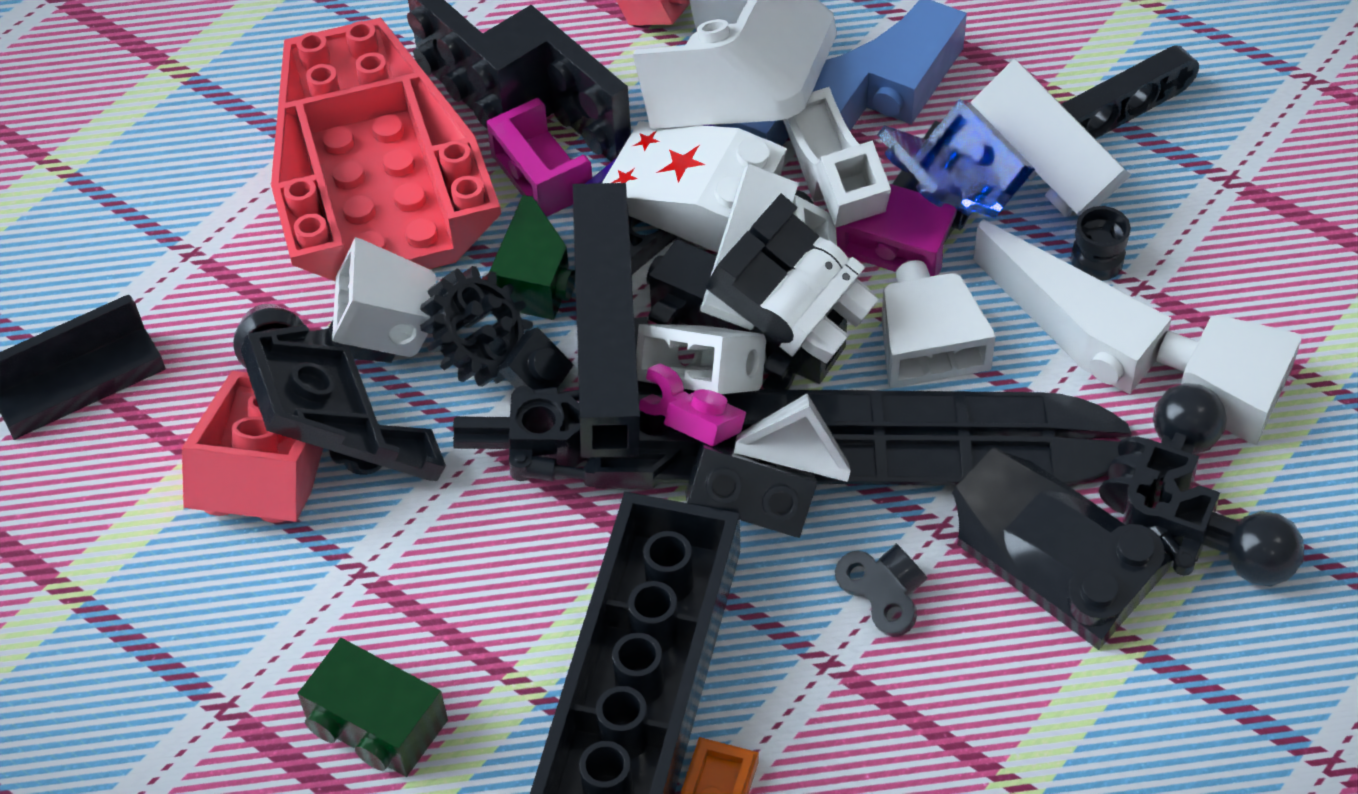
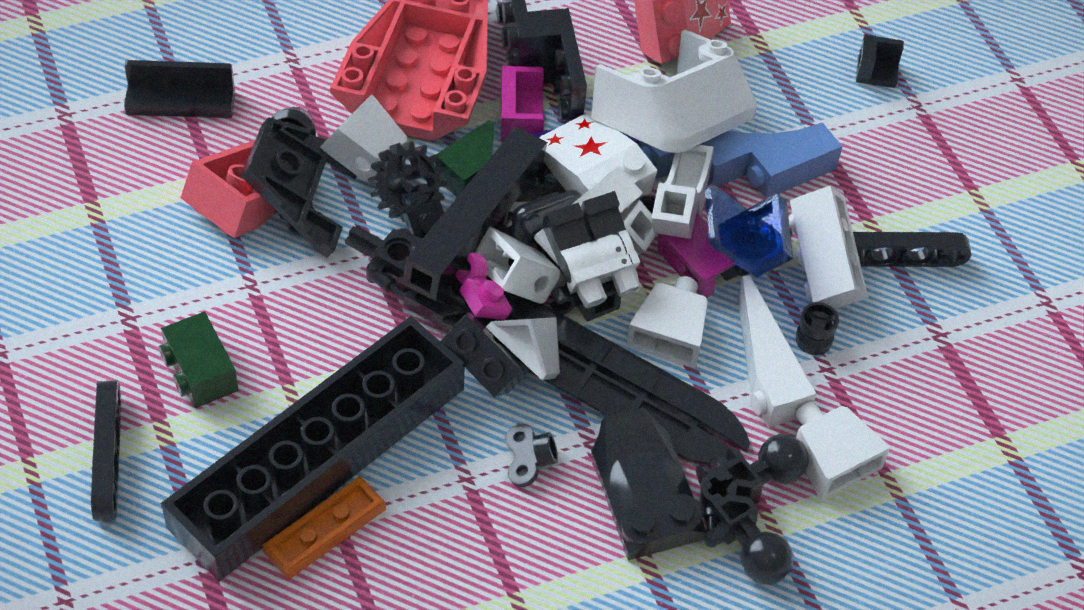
camera: 25 degrees right, 0 degrees up
(678, 289) = (528, 218): none -> black piece

